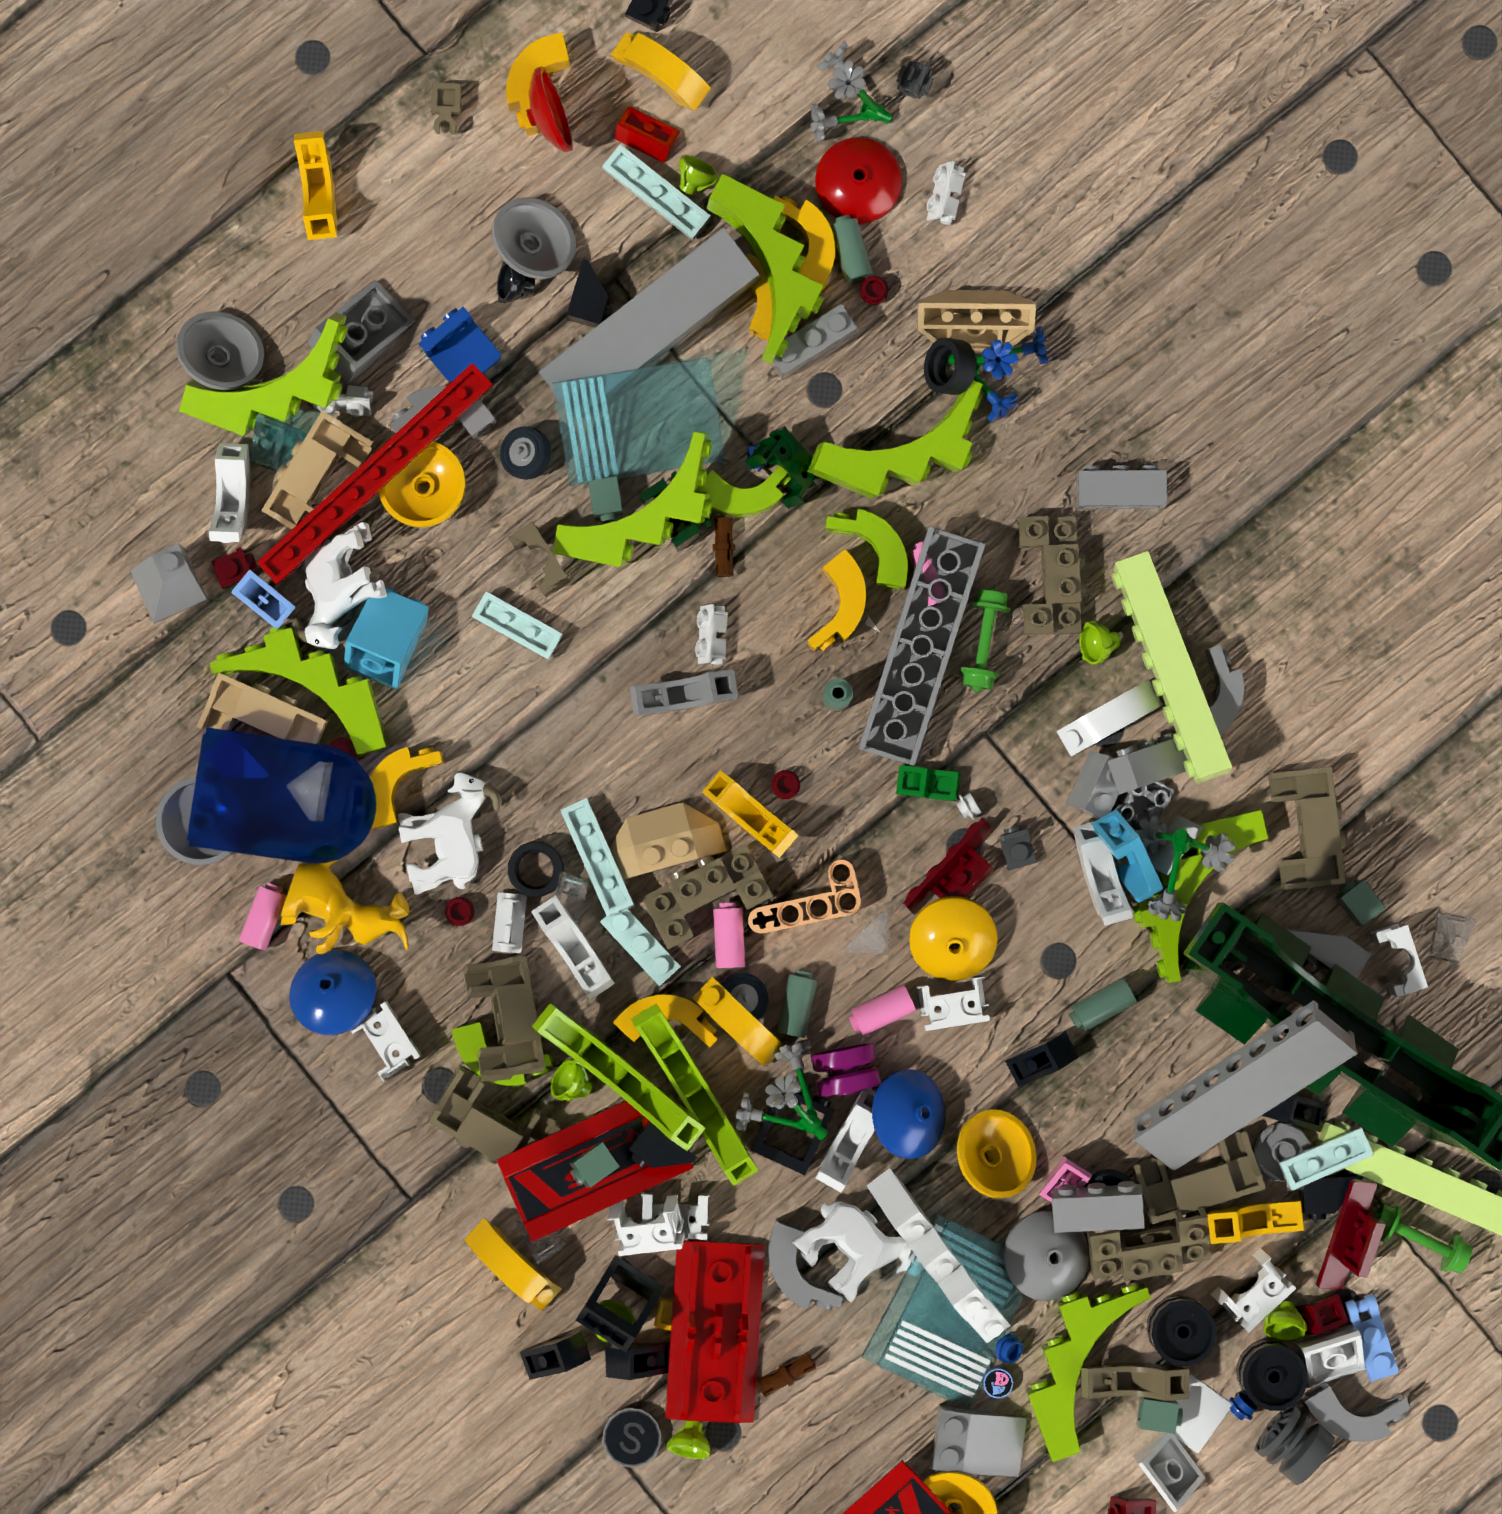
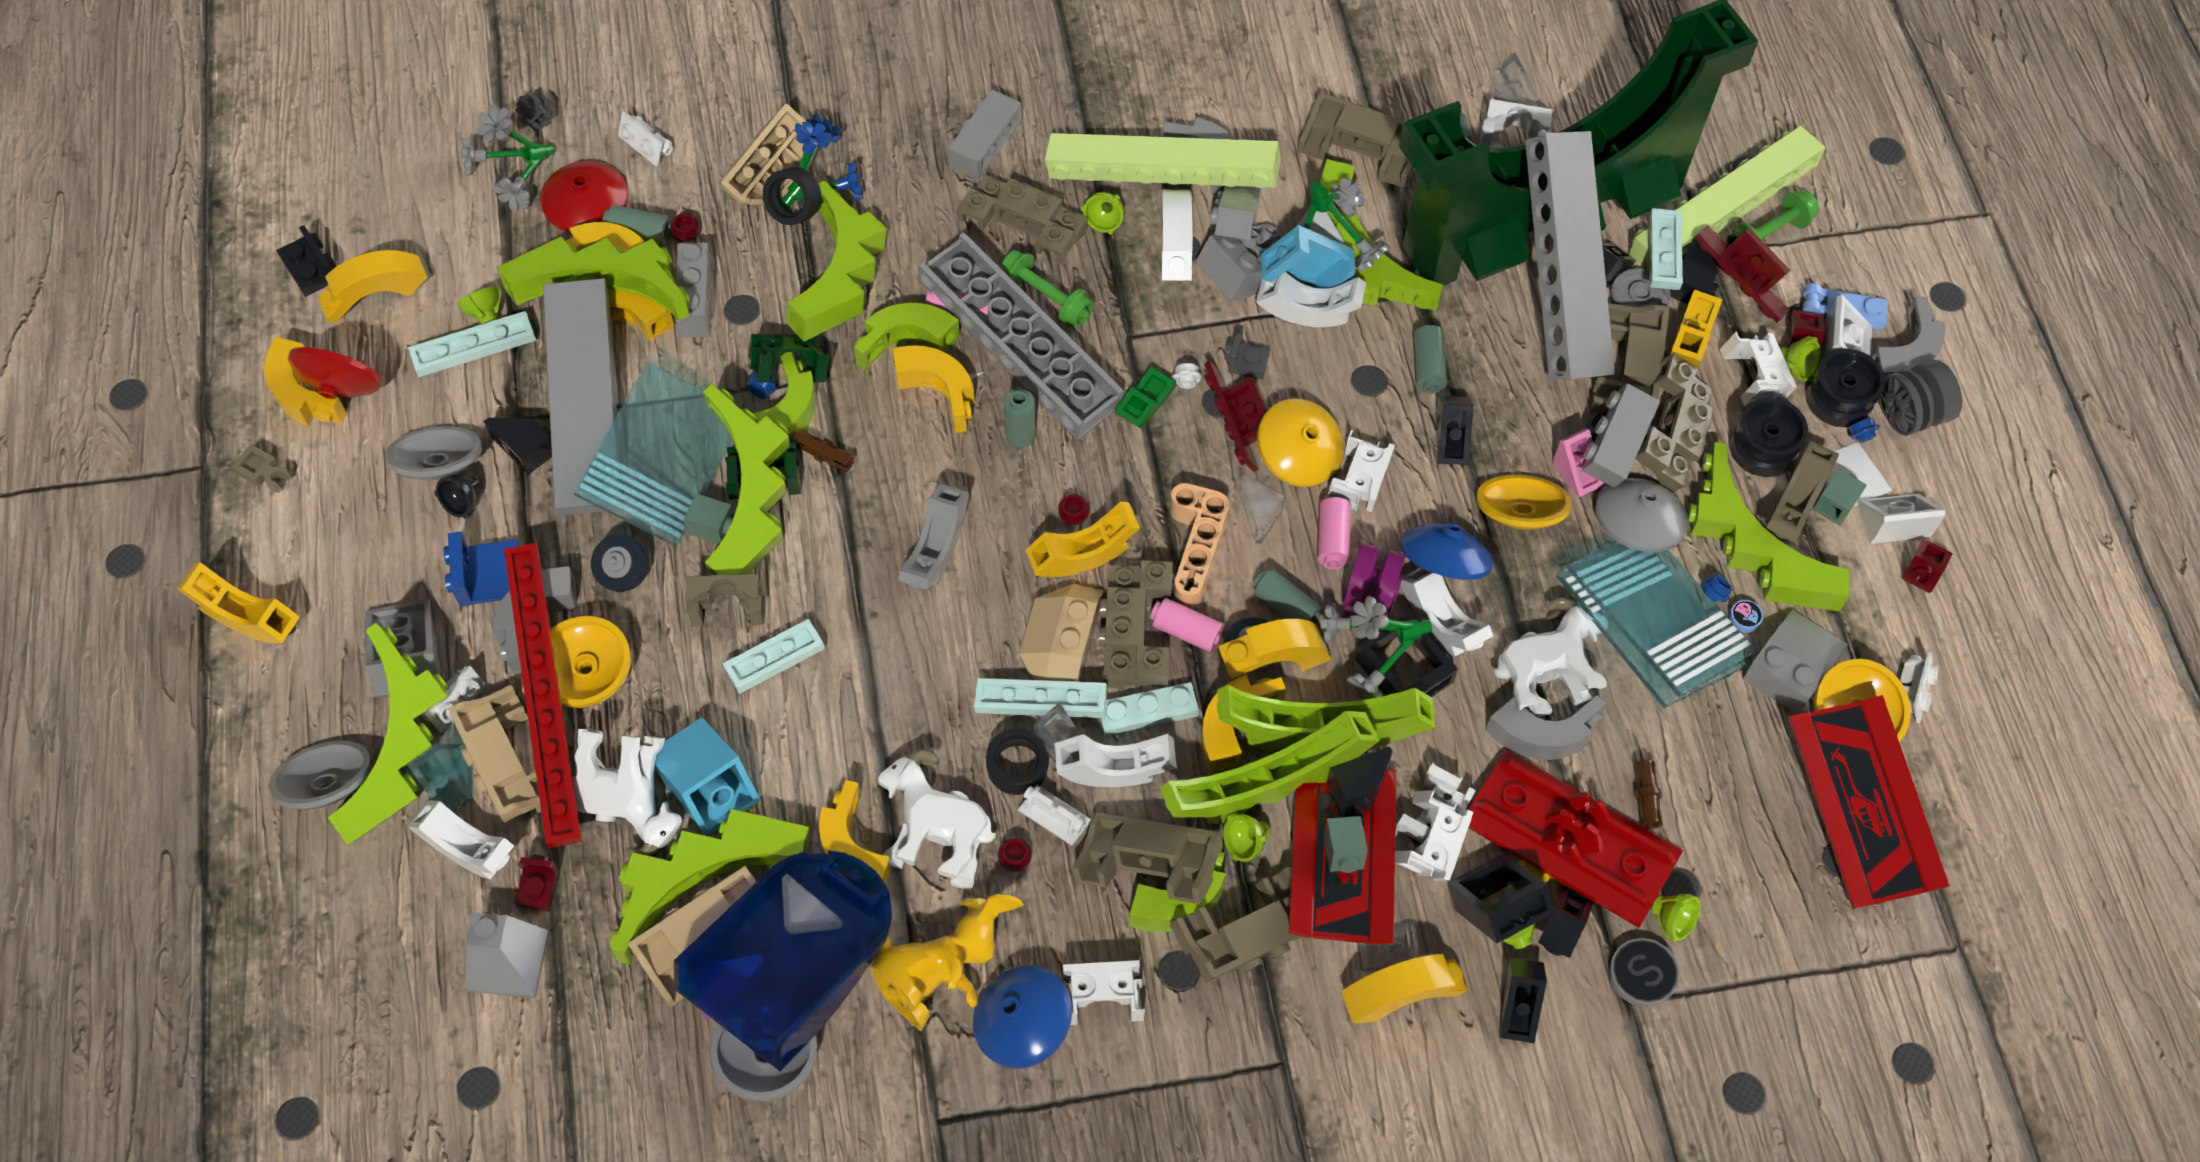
camera: 60 degrees left, 25 degrees down
(263, 599) = (586, 866): light blue slope -> none
(263, 916) = (901, 1046): bright pink brick -> none
(646, 134) = (416, 329): red slope -> none
(711, 621) = (888, 498): white hinge -> none
(937, 1256) = (1599, 581): white arch -> none

